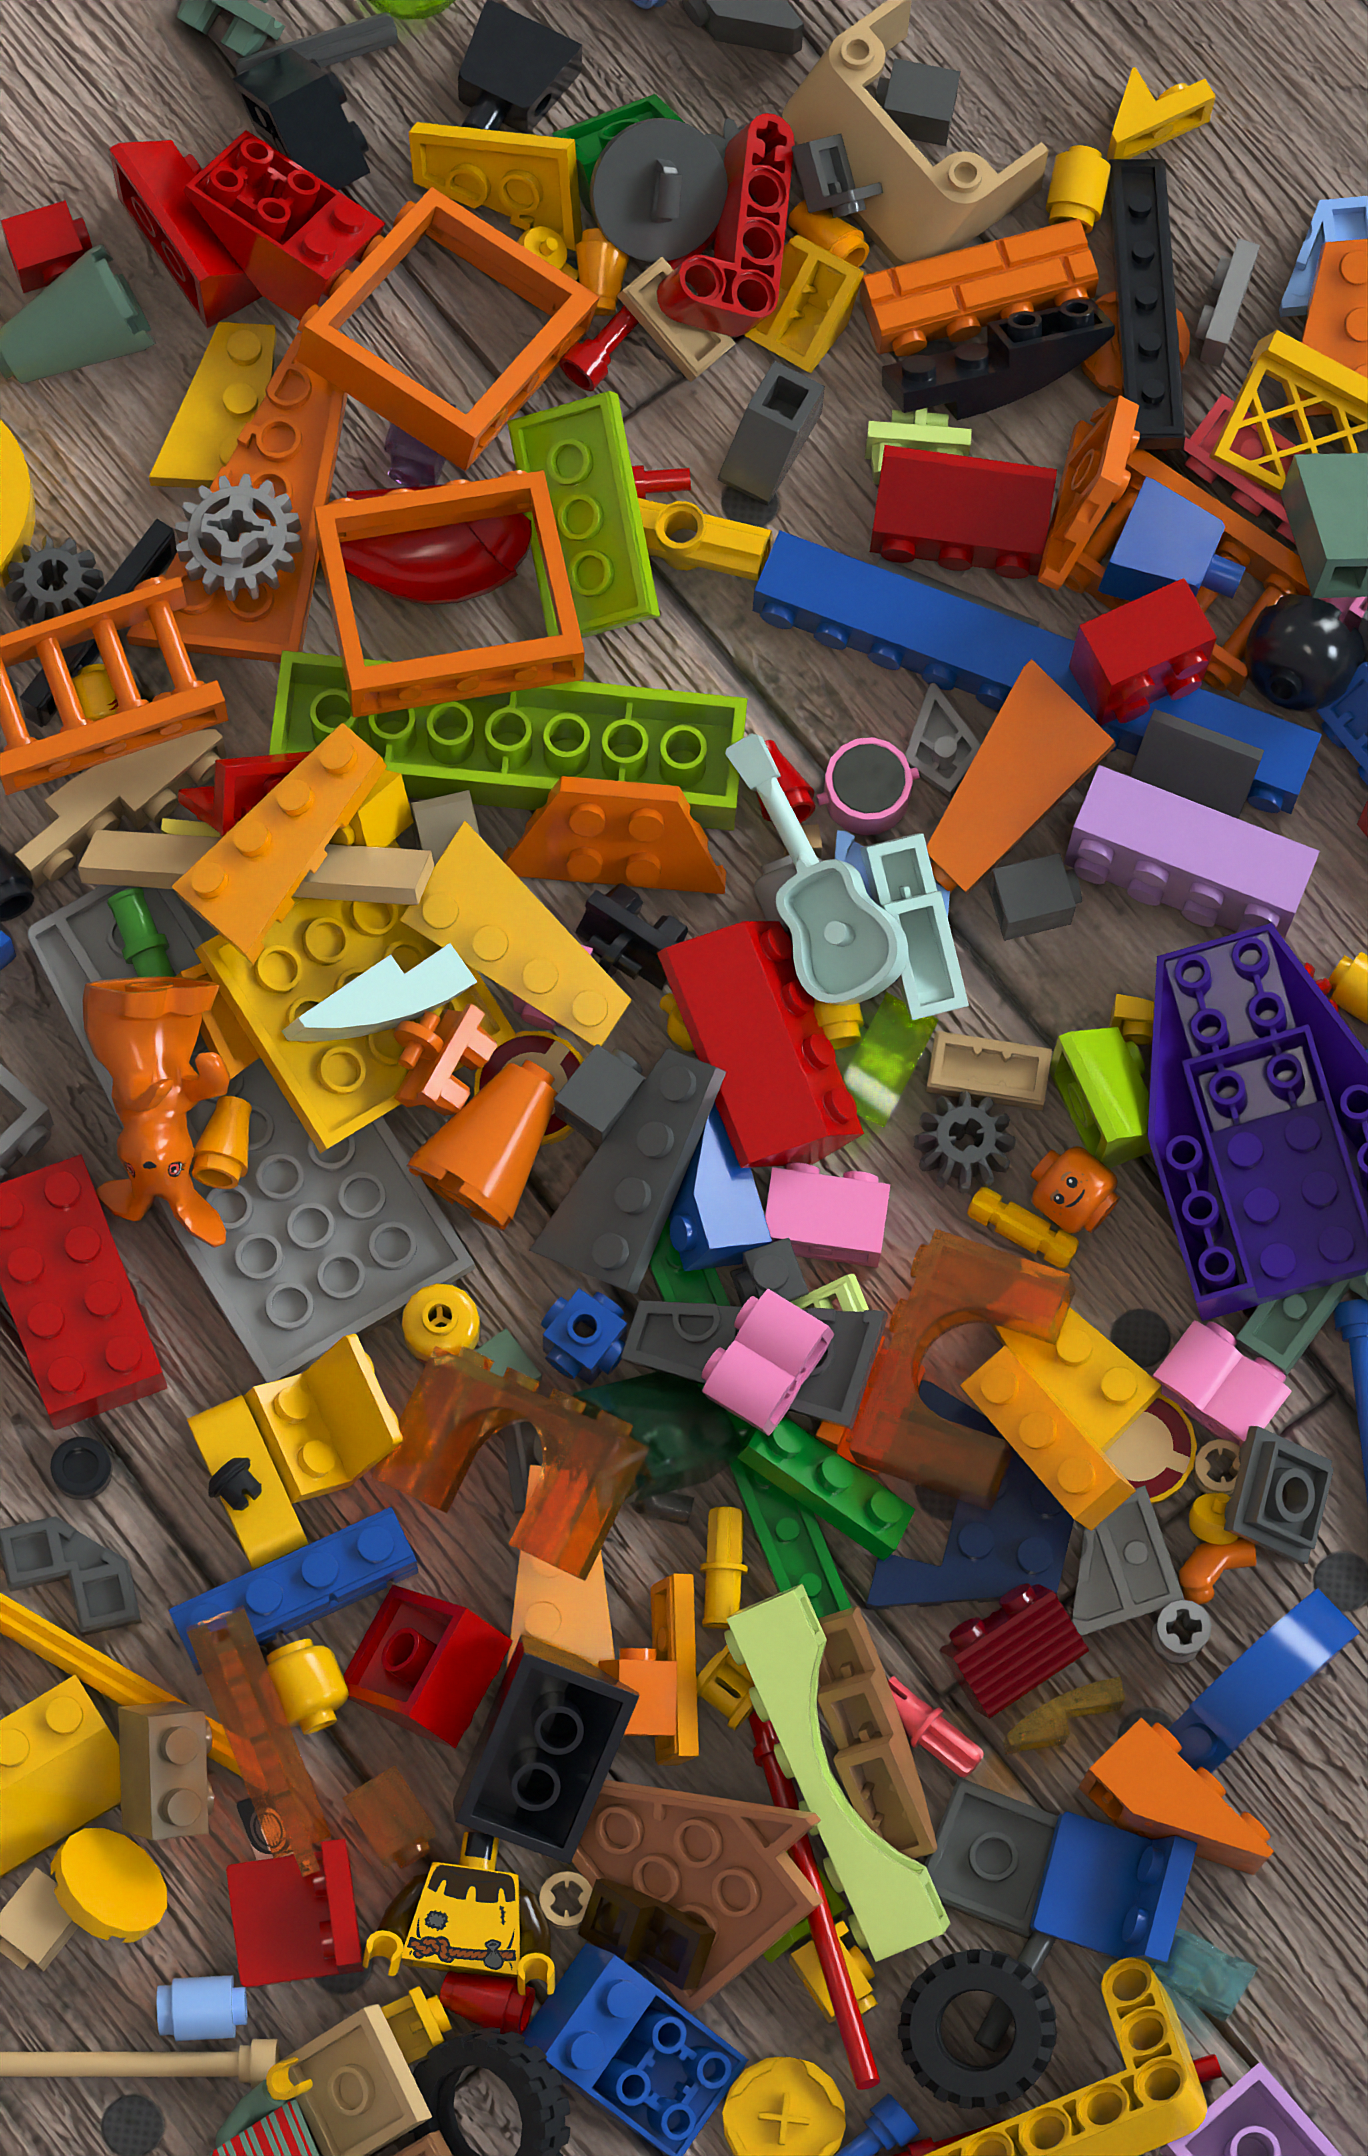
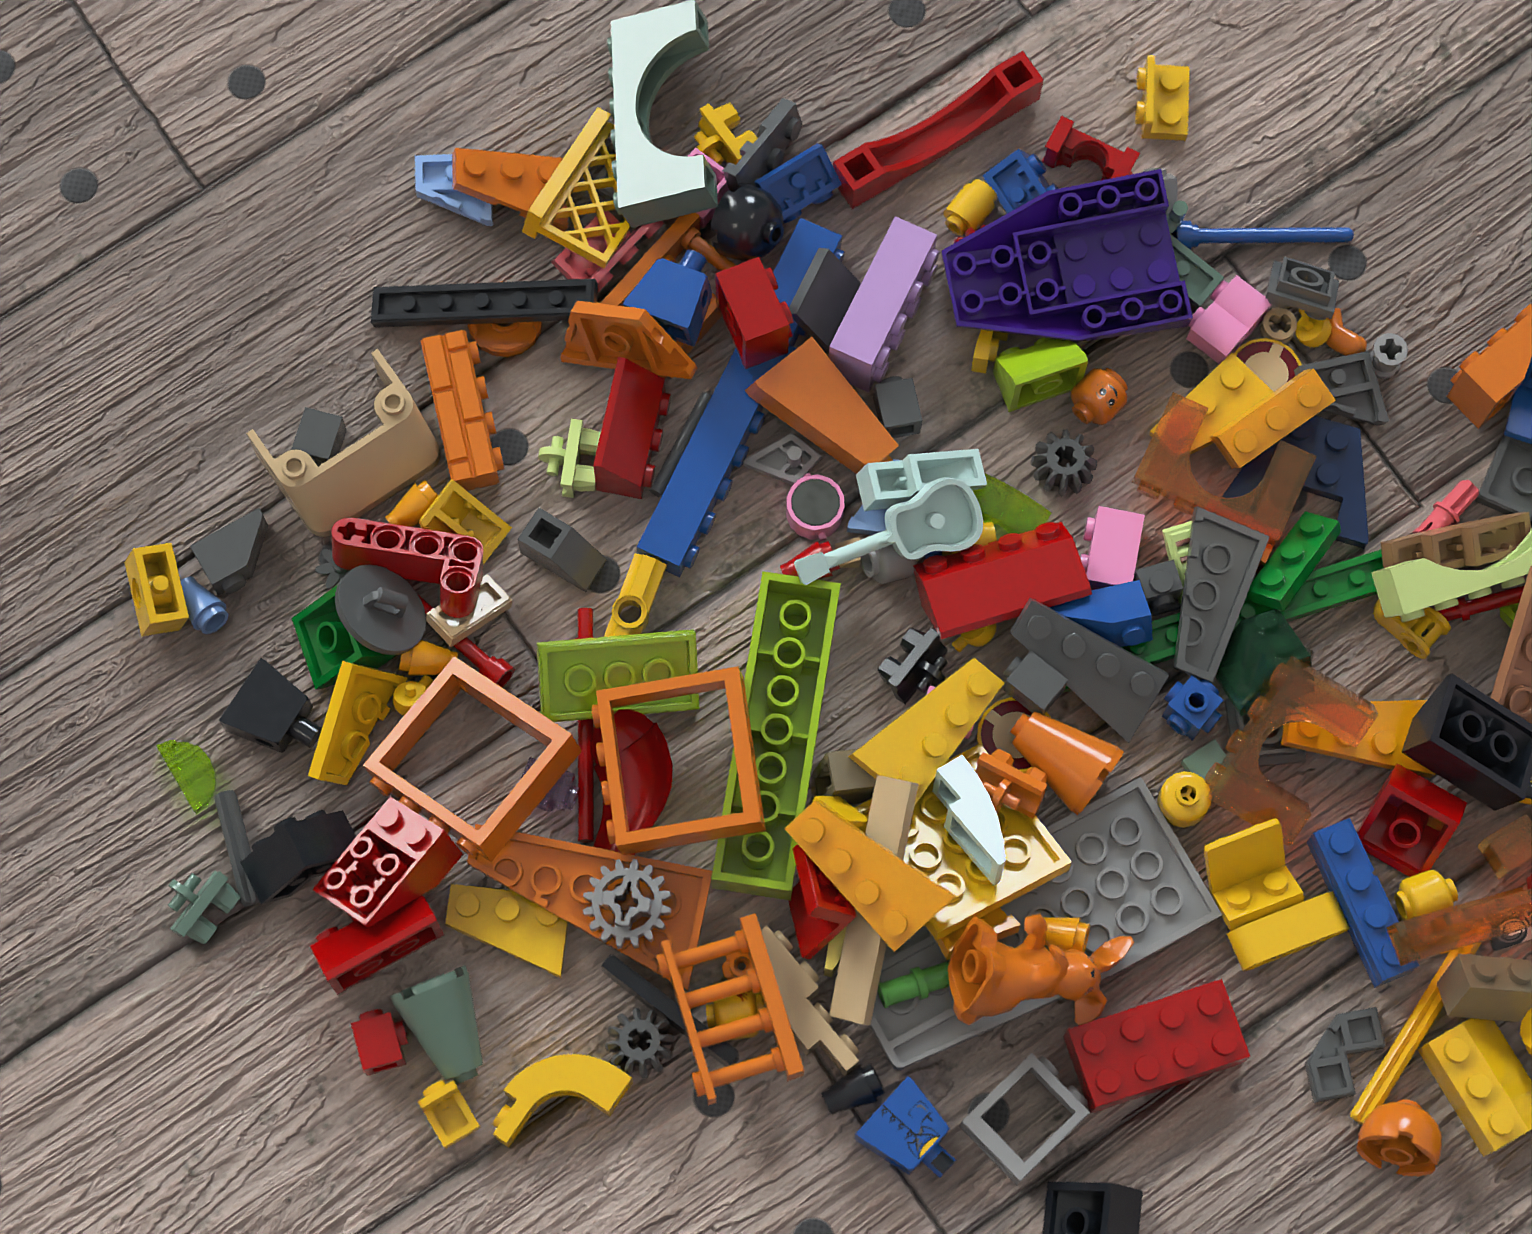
camera: 85 degrees left, 0 degrees up
(81, 1468) = (1271, 1044): black tile -> none
(233, 1482) = (1298, 933): black piece -> none
(617, 836) = (849, 669): orange wing -> none
(657, 1689) = (1426, 676): orange brick -> none
(675, 1641) = (1411, 663): light orange tile -> none
(723, 1566) = (1343, 631): yellow axle -> none
(766, 1360) = (1230, 581): bright pink brick -> none
(828, 179) = (379, 500): dark grey bracket -> none
(989, 1068) = (1014, 445): tan plate -> none
(1012, 1648) = (1401, 455): dark red brick -> none
(1016, 360) = (521, 395): black slope -> none
(1023, 1227) = (1119, 432): yellow axle -> none
(1049, 1723) = (1443, 438): clear yellow slope -> none
(1078, 187) = (394, 342): yellow brick -> none
(1149, 123) = (343, 296): yellow slope -> none
(1232, 280) = (495, 258): light grey plate -> none
(1261, 1681) = (1426, 302): blue arch -> none

